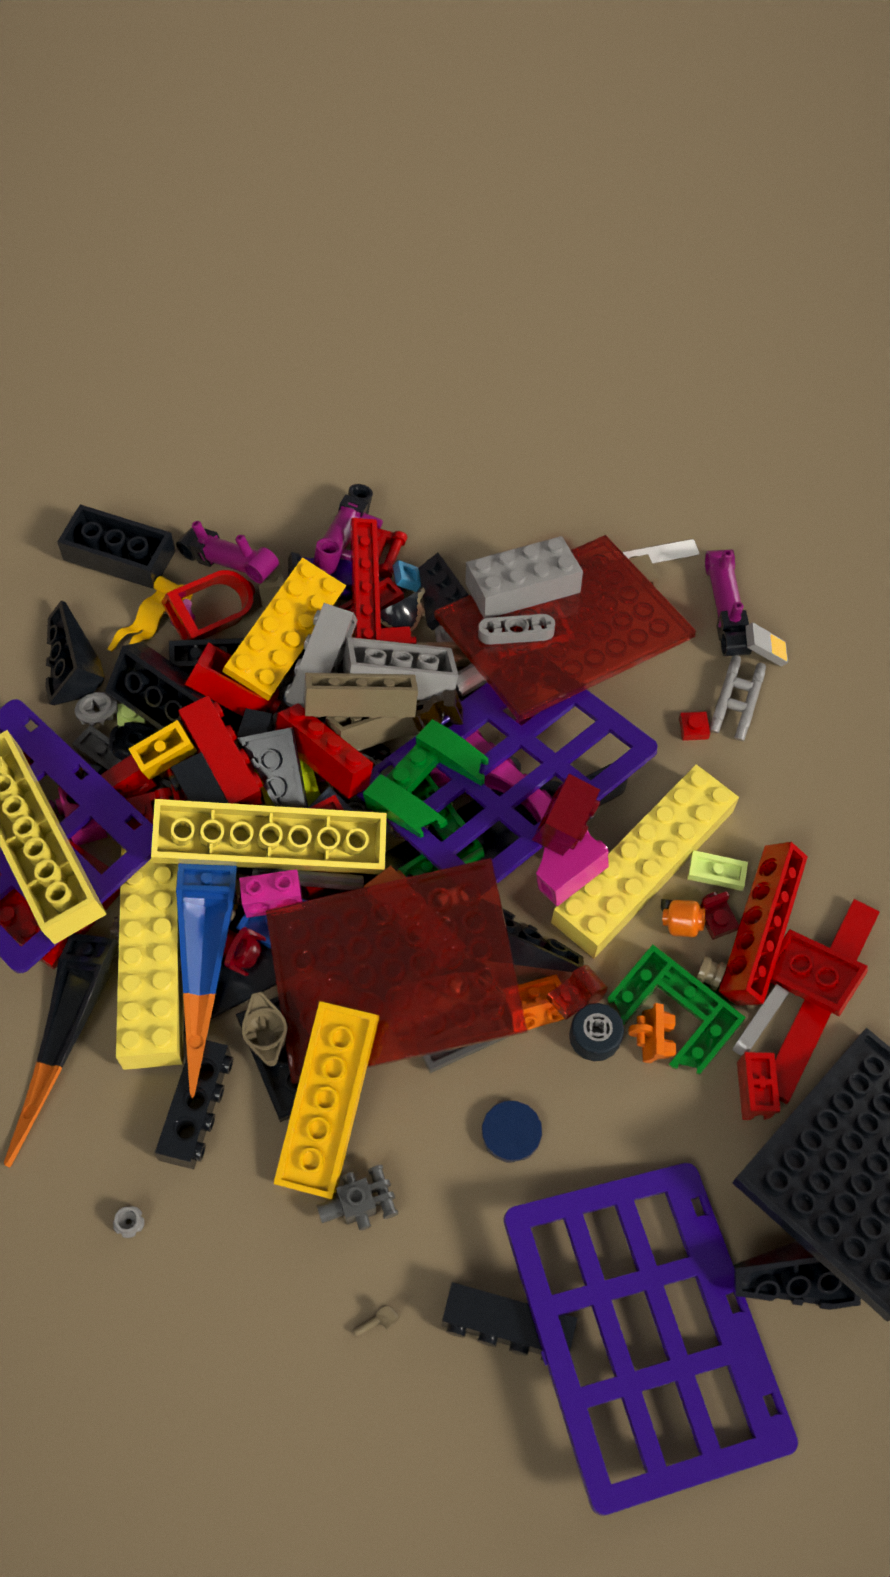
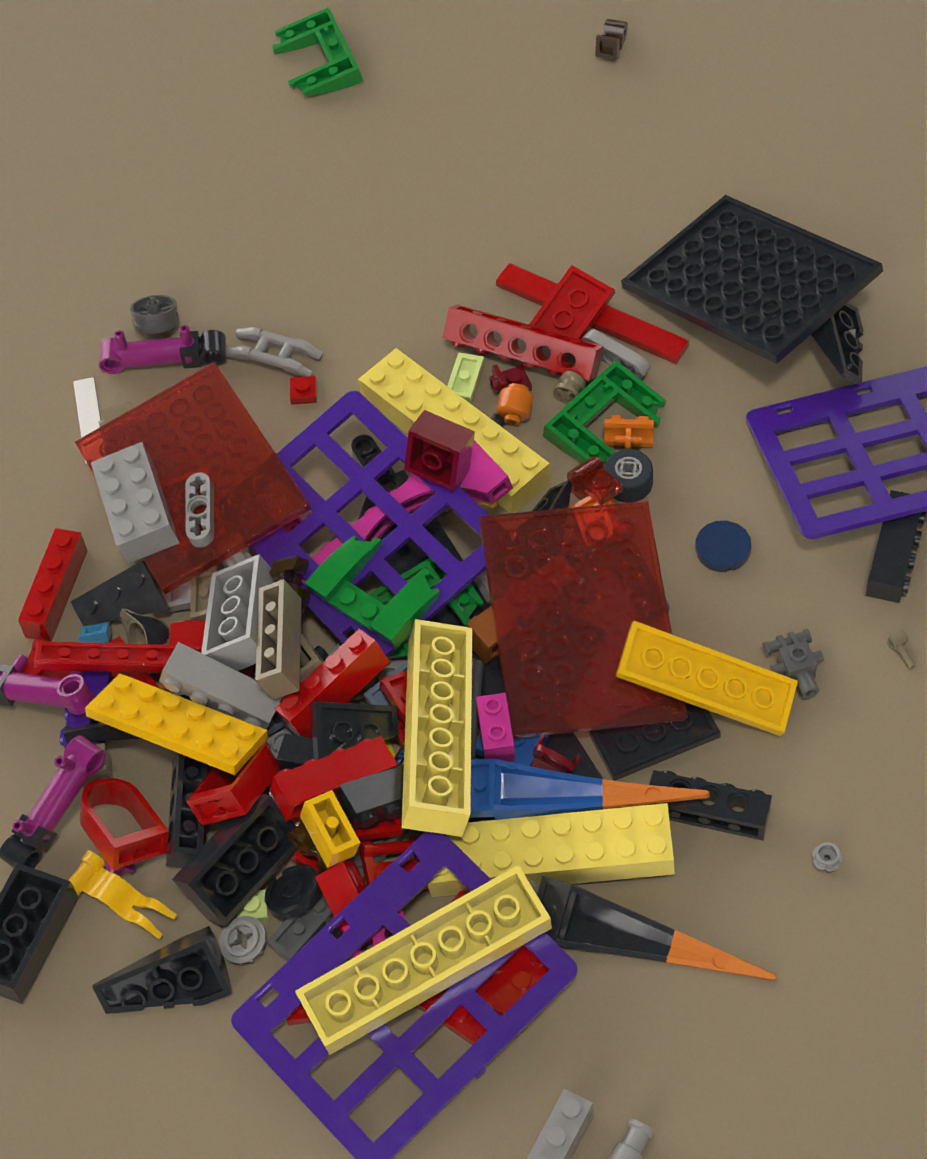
camera: 80 degrees left, 5 degrees down
(264, 1029) = (642, 730): dark tan hat -> none
(455, 537) = (53, 584): none -> red brick
(758, 1085) = (677, 359): red hinge -> none
(766, 644) = (220, 321): light grey tile -> none
(768, 588) = (154, 314): none -> dark grey wheel

